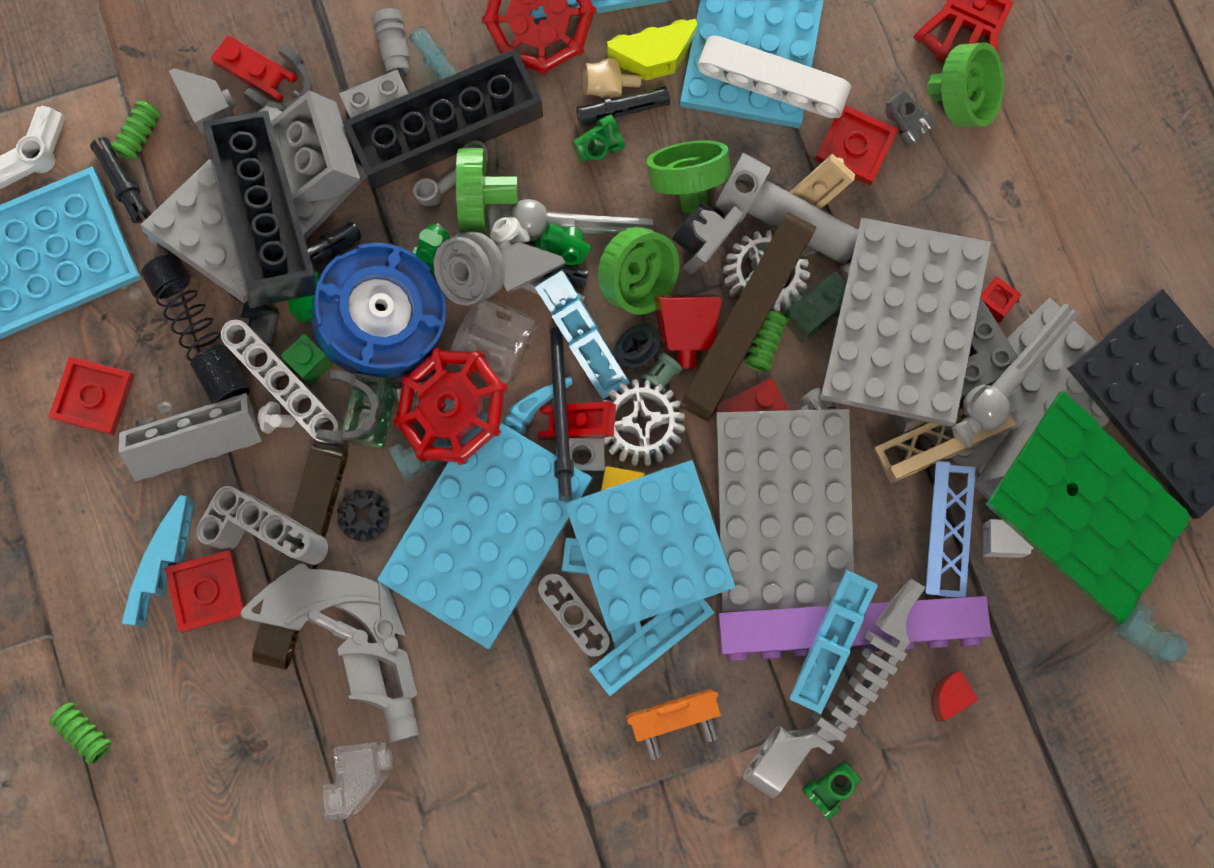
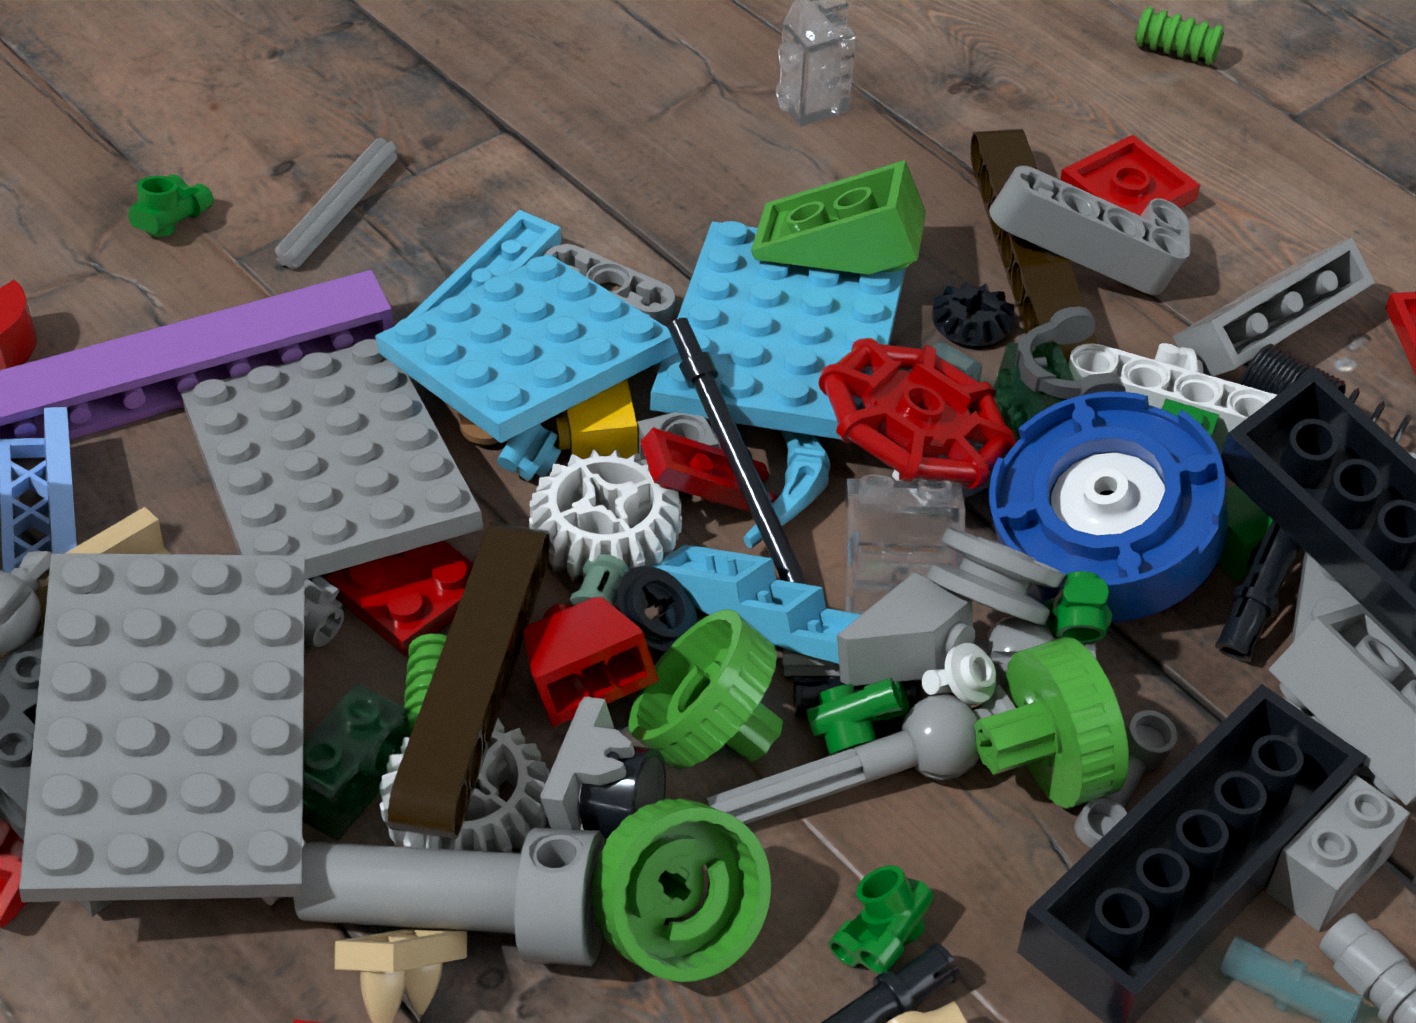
camera: 160 degrees right, 30 degrees down
(165, 548) = (1211, 192): medium azure slope -> none
(306, 592) = (866, 148): light grey piece -> none
(420, 587) = (846, 225): none -> bright green slope
(673, 716) = (419, 219): orange piece -> none
(720, 758) = (335, 204): none -> light grey axle
(786, 750) = (126, 304): light grey piece -> none
(833, 641) = (204, 308): medium azure slope -> none

